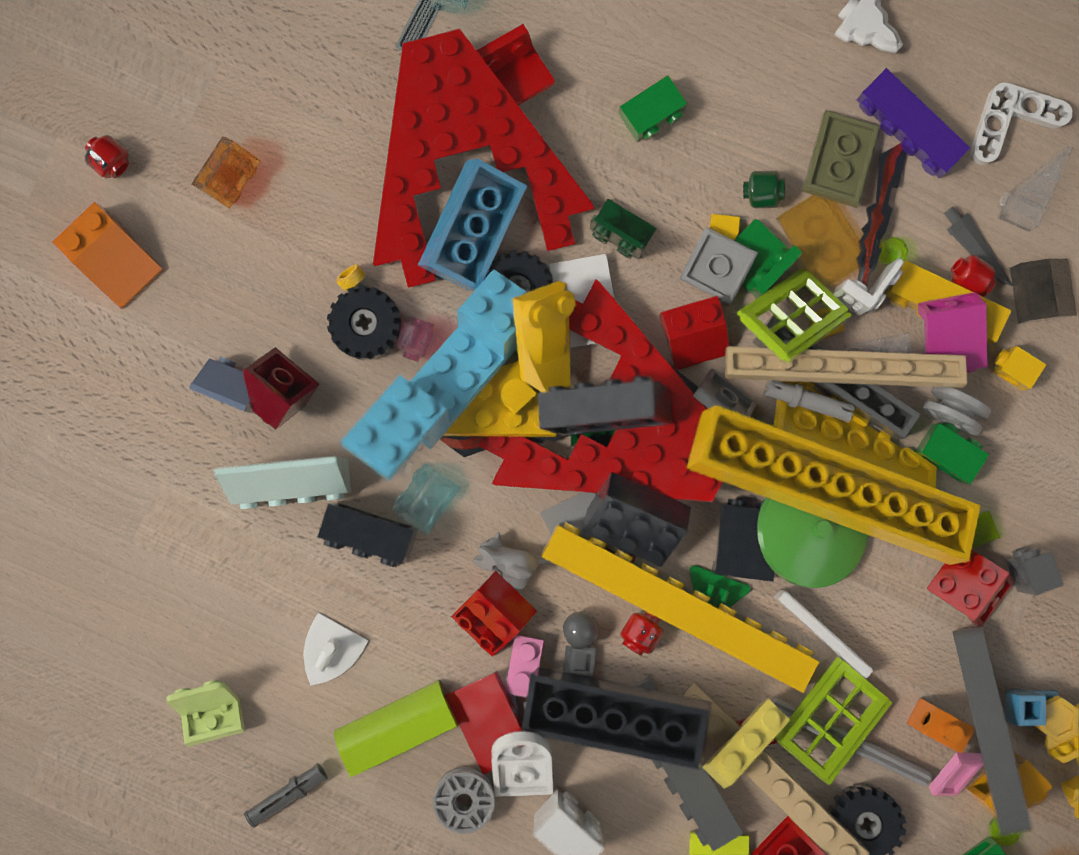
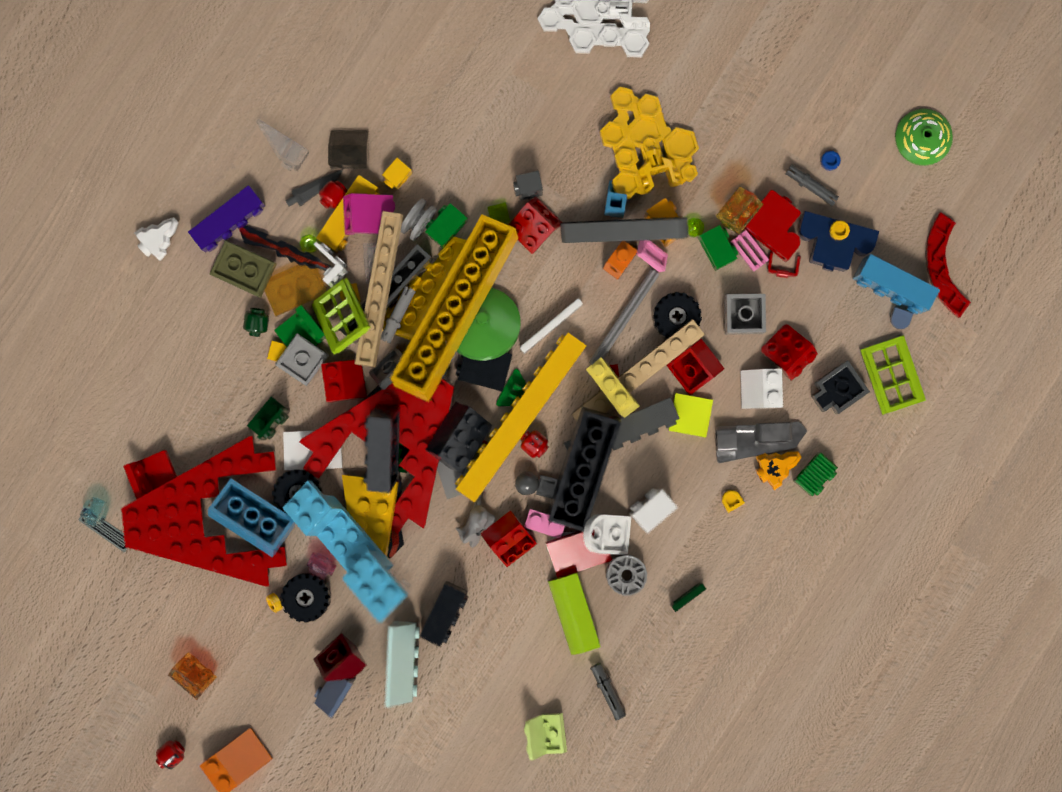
camera: 85 degrees left, 0 degrees up
(330, 650) = (518, 649): white shield -> none
(425, 498) = (427, 573): clear light blue bracket -> none
(516, 395) = (367, 504): yellow tile -> none
(544, 335) = (330, 480): yellow slope -> none
(653, 109) = (192, 387): green piece -> none
(855, 736) = (621, 317): lime piece -> none
(1014, 108) = (225, 151): white beam -> none

